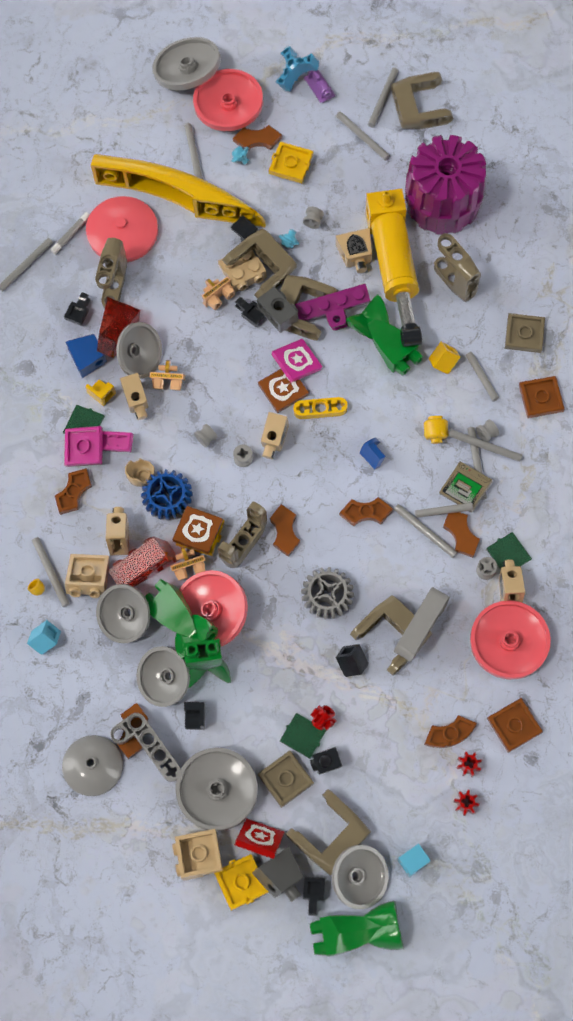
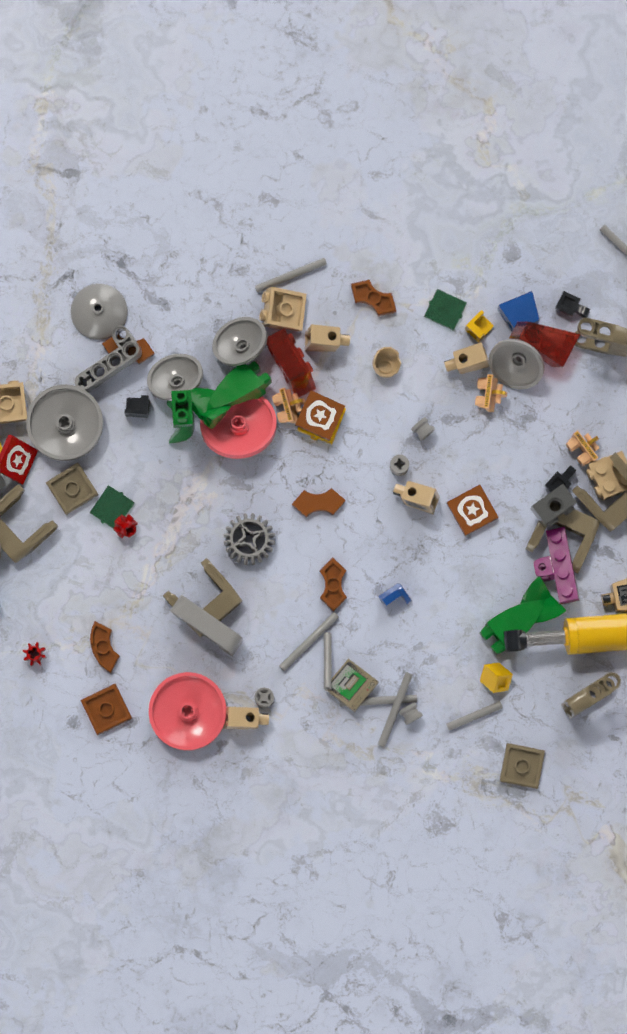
camera: 90 degrees right, 10 degrees up
(36, 587) = (275, 261): yellow hinge -> none
(44, 637) = (224, 268): medium azure panel -> none
(83, 446) = (418, 308): dark pink tile -> none
(117, 441) = (422, 337): dark pink plate -> none
(159, 497) = (358, 372): blue gear -> none
(227, 552) = (290, 440): dark tan connector -> none
(296, 360) = (501, 525): dark pink tile -> none
(324, 401) = (453, 560): yellow beam -> none
(335, 761) = (91, 529): black brick -> none
(352, 660) = (180, 558): black panel -> none
(436, 429) = (415, 661): yellow head -> none
(465, 541) = (296, 679): dark orange tile -> none
(472, 759) = (66, 657): red gear -> none
(508, 549) = (281, 723): clear green piece -> none
(541, 397) = (447, 775): dark orange tile -> none

